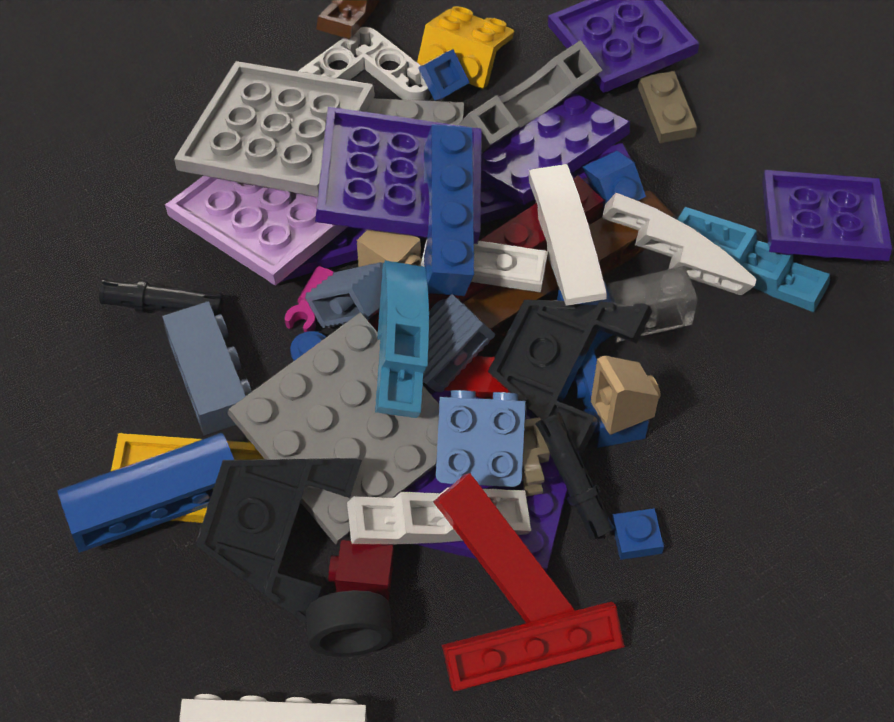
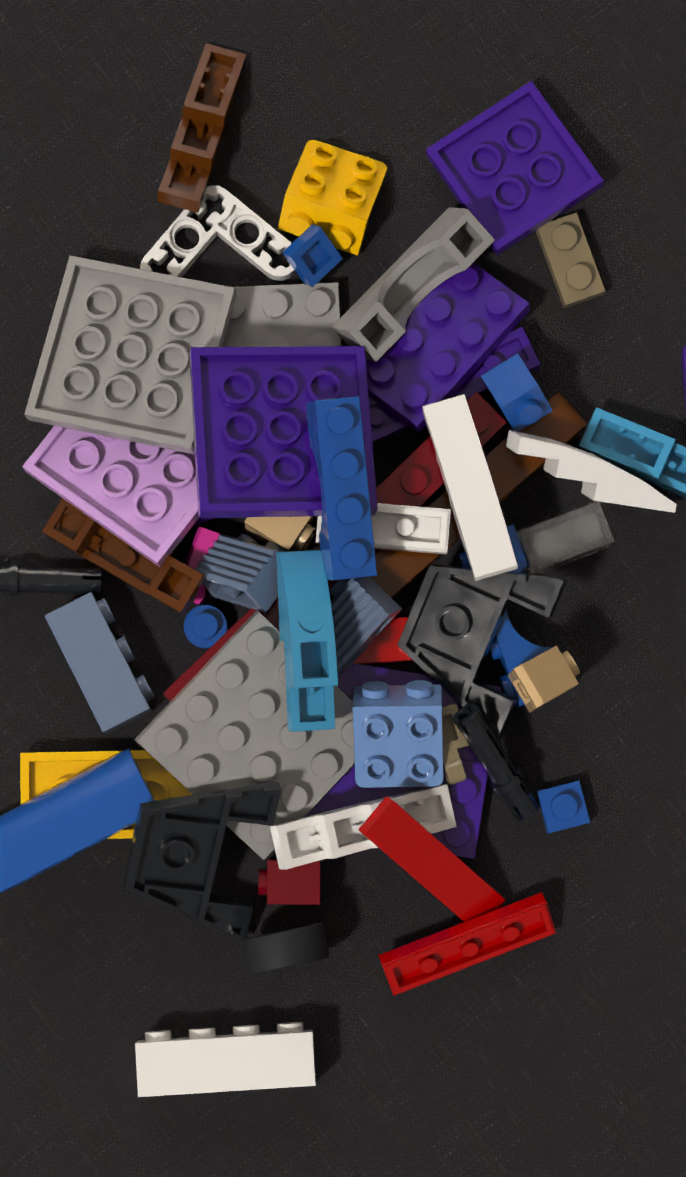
camera: 10 degrees left, 25 degrees up
(242, 286) = (170, 584): none -> reddish brown slope

